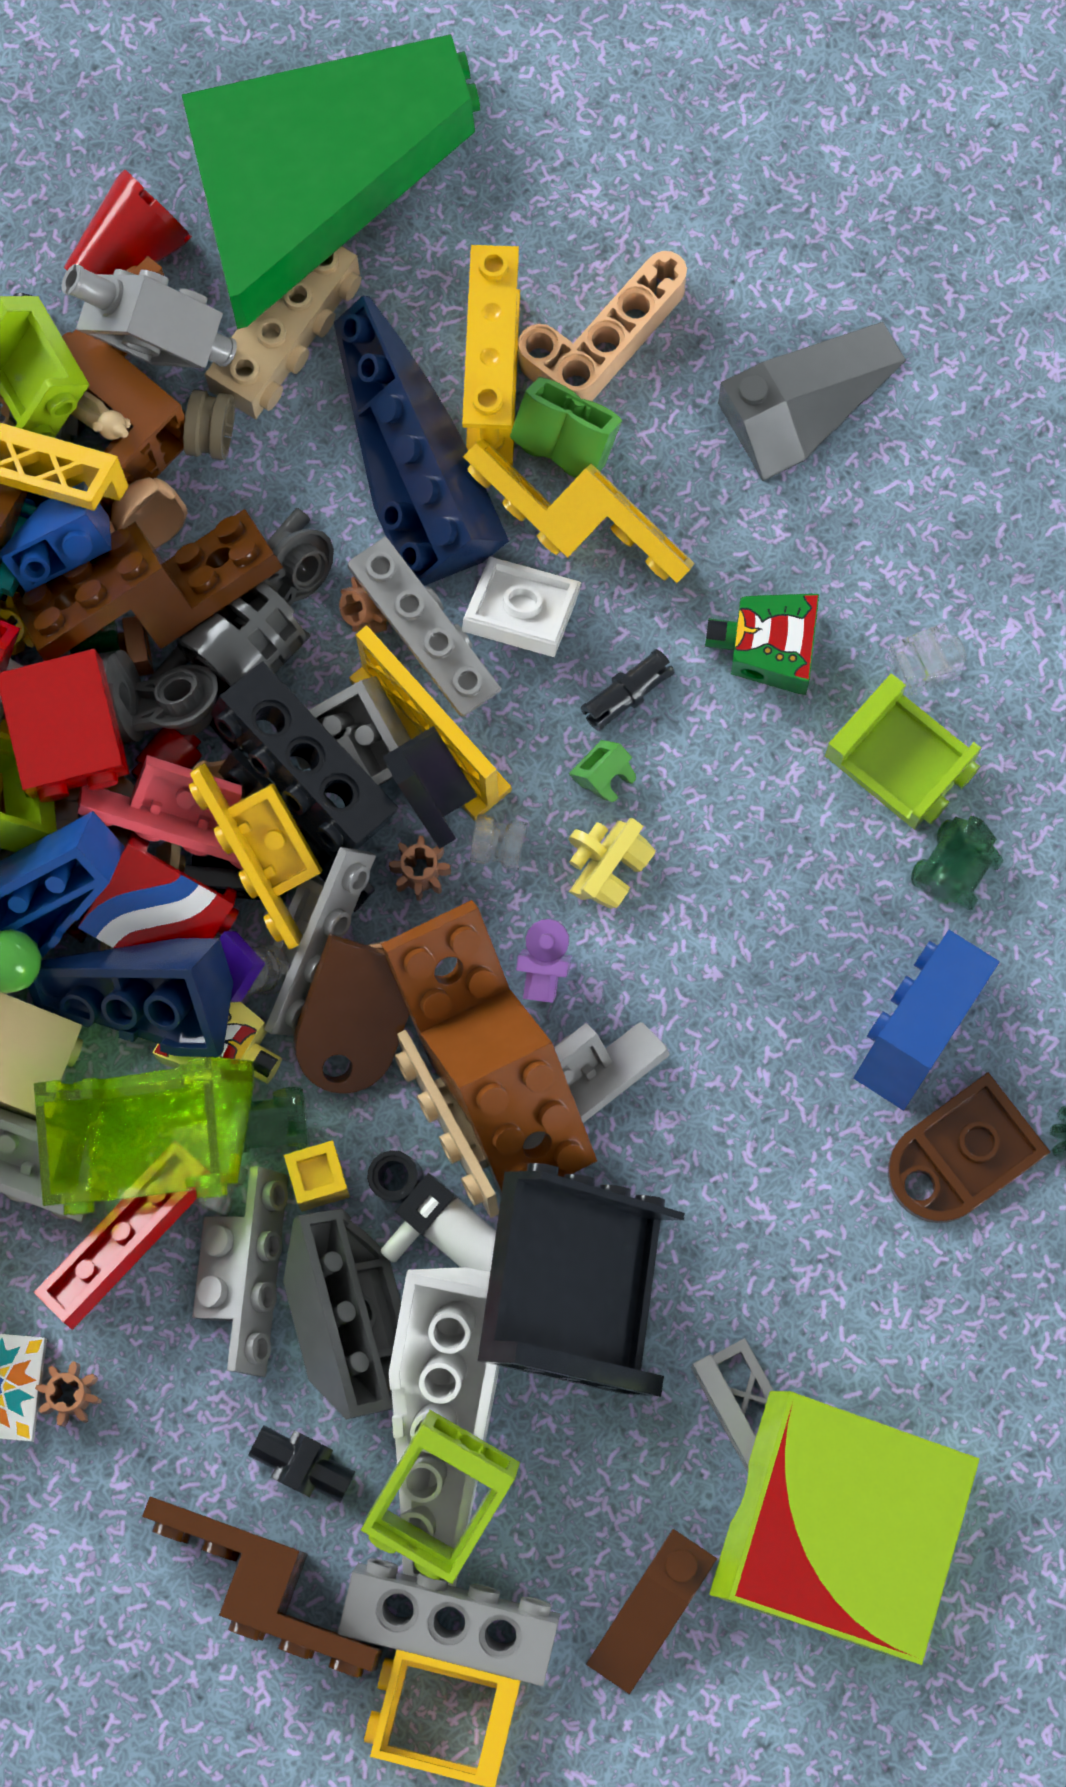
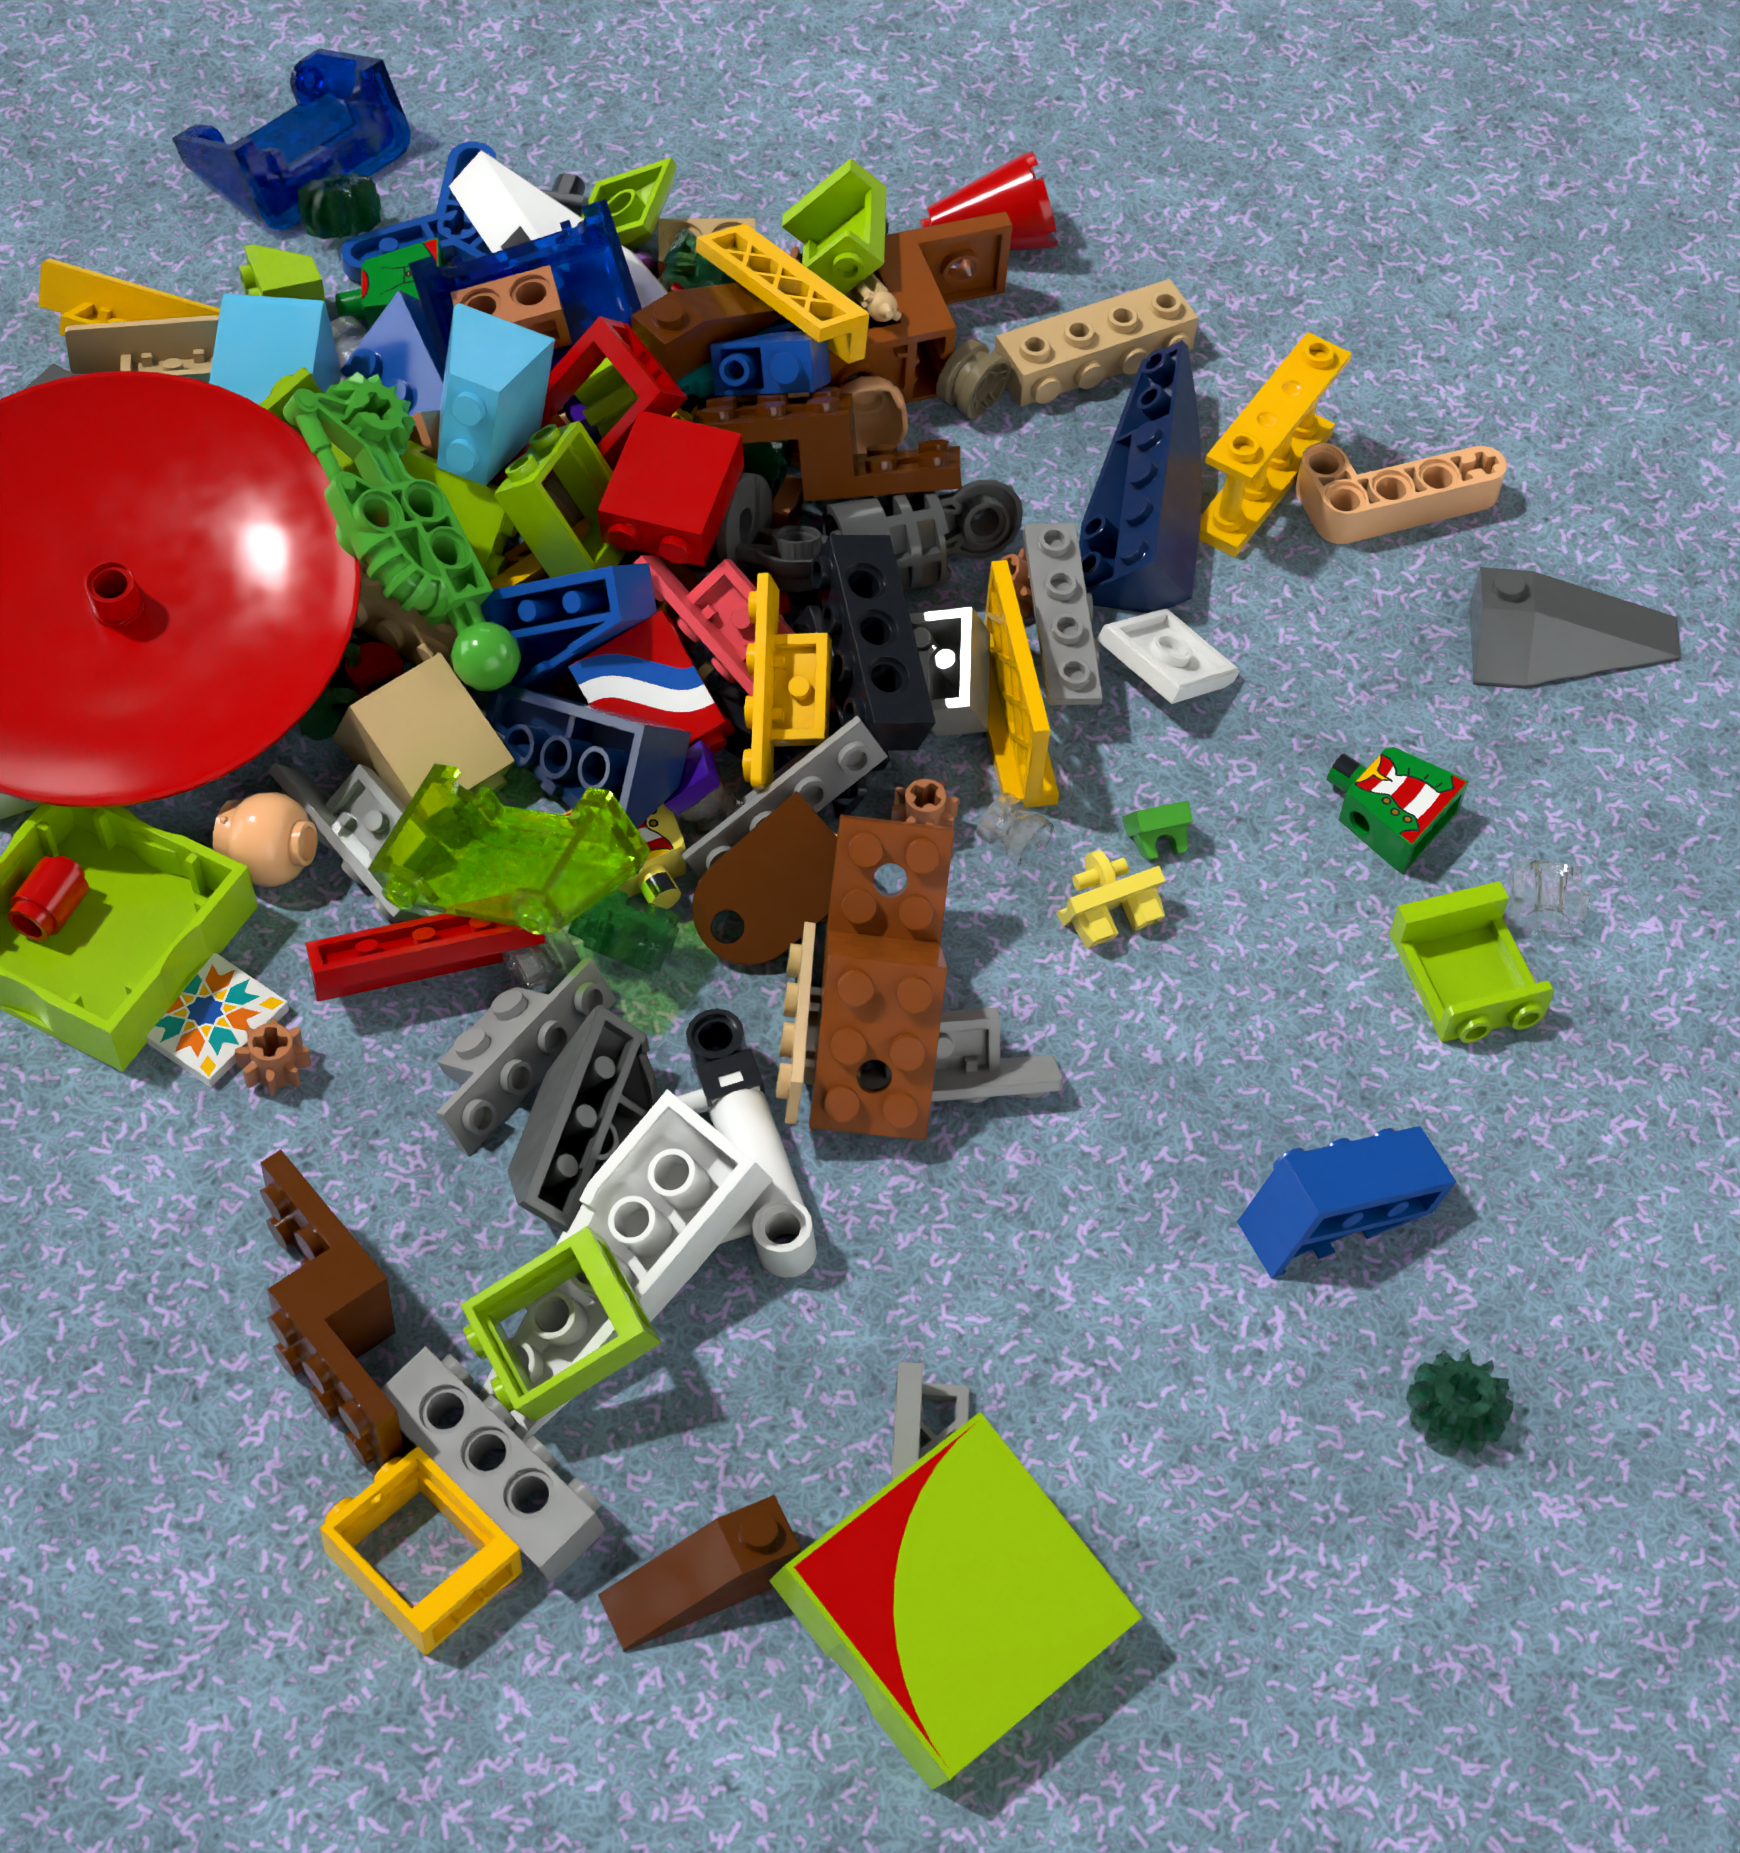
camera: 25 degrees right, 20 degrees down
(149, 318) = (973, 242): light grey brick -> none
(301, 1463) = (447, 1241): black axle -> none
(316, 1176) = (645, 995): yellow brick -> none
(318, 154) = (1212, 229): green slope -> none
(430, 782) = (982, 731): black panel -> none
(544, 959) = (989, 942): medium lavender hips -> none
(564, 427) = (1304, 539): bright green brick -> none
(573, 1280) = (829, 1206): black panel -> none
(577, 511) = (1273, 605): yellow bracket -> none
(627, 690) = (1226, 775): black pin -> none
(958, 862) = (1469, 1082): clear green piece -> none
(966, 1150) = (1311, 1348): reddish brown tile -> none

